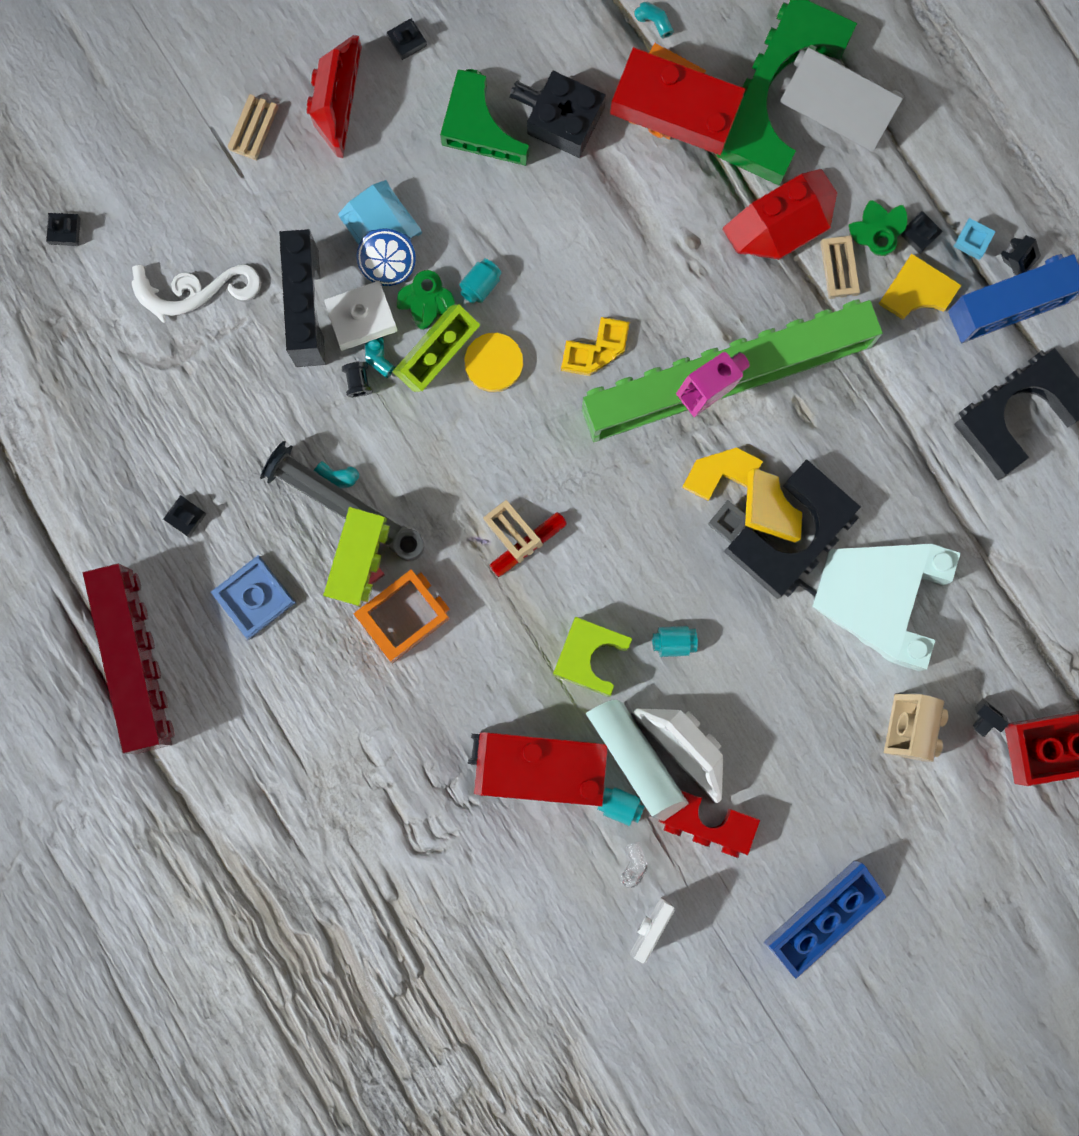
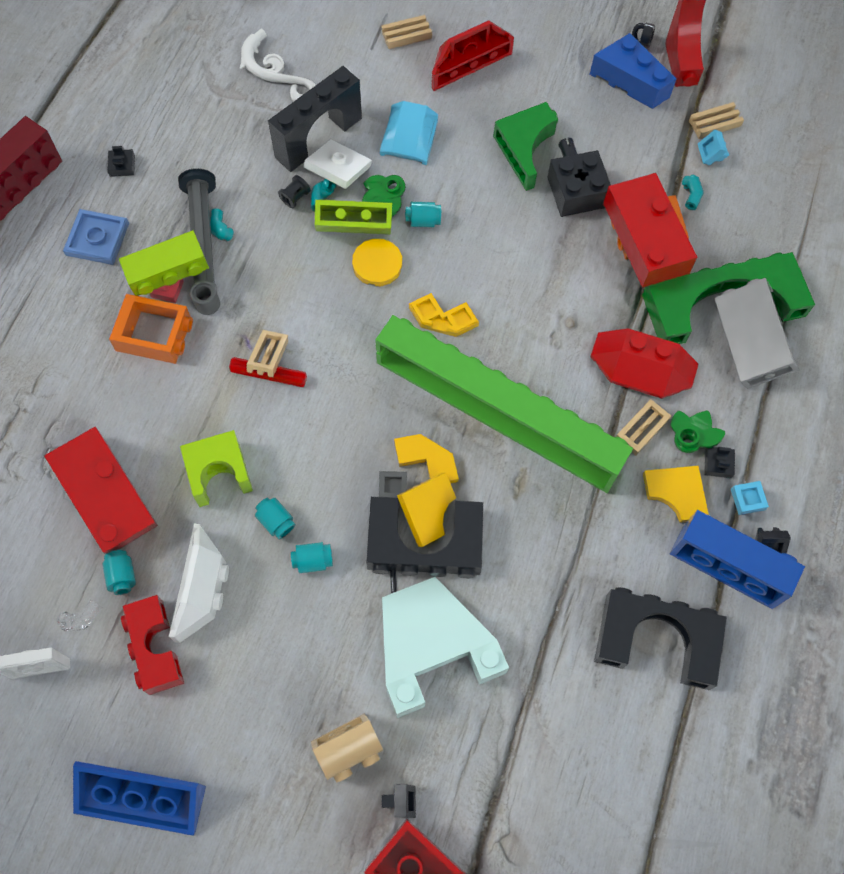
camera: 50 degrees right, 15 degrees down
(386, 256) = (389, 149): dish -> none
(406, 39) = (540, 70): black tile -> none
(637, 759) = (155, 551): light aqua brick -> none
(712, 381) = (474, 379): dark pink torso -> none
(736, 636) = (312, 557): none -> teal brick

